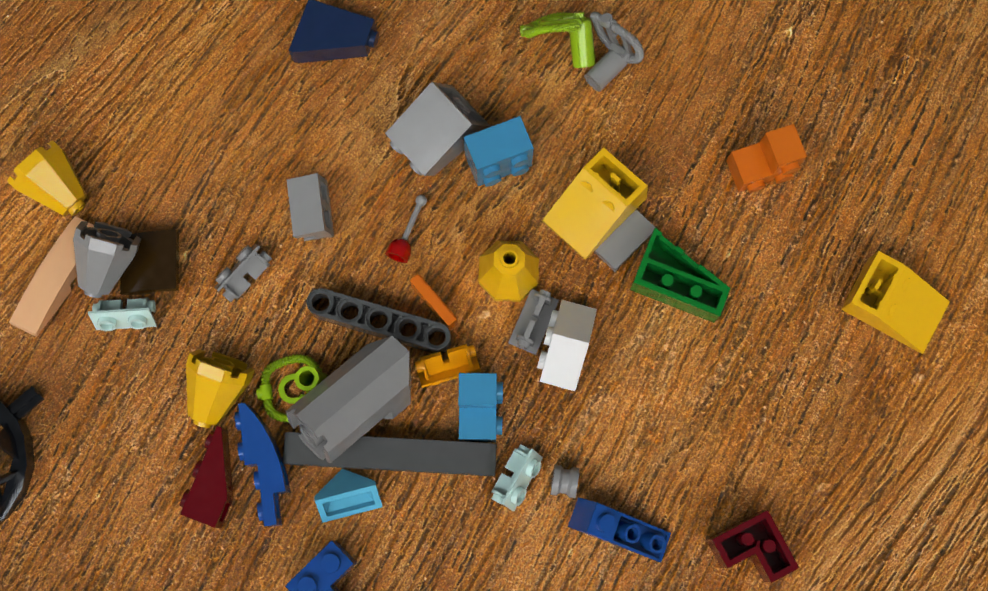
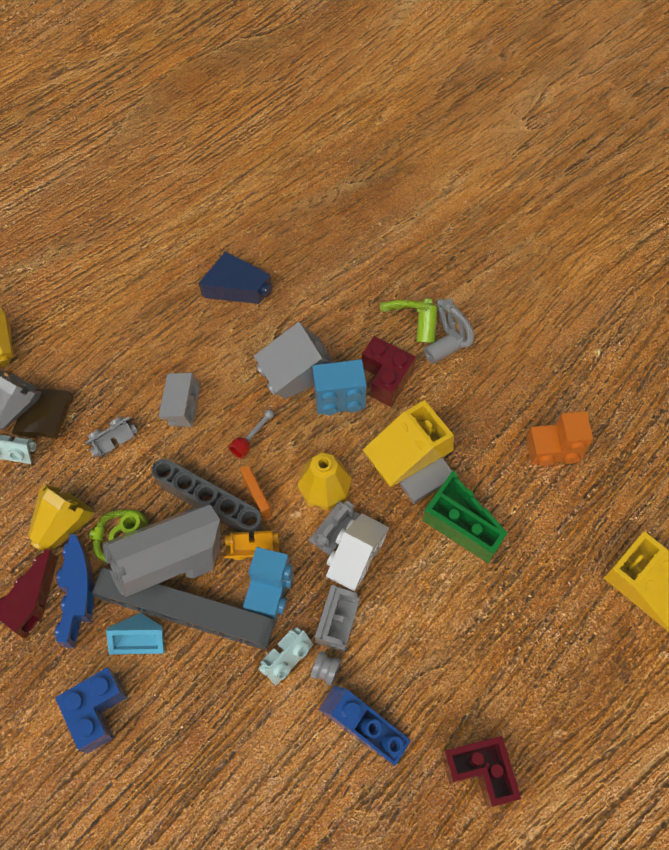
camera: 15 degrees right, 15 degrees down
(551, 107) = (391, 367): none -> dark red brick
(563, 424) = (337, 618): none -> light grey hinge

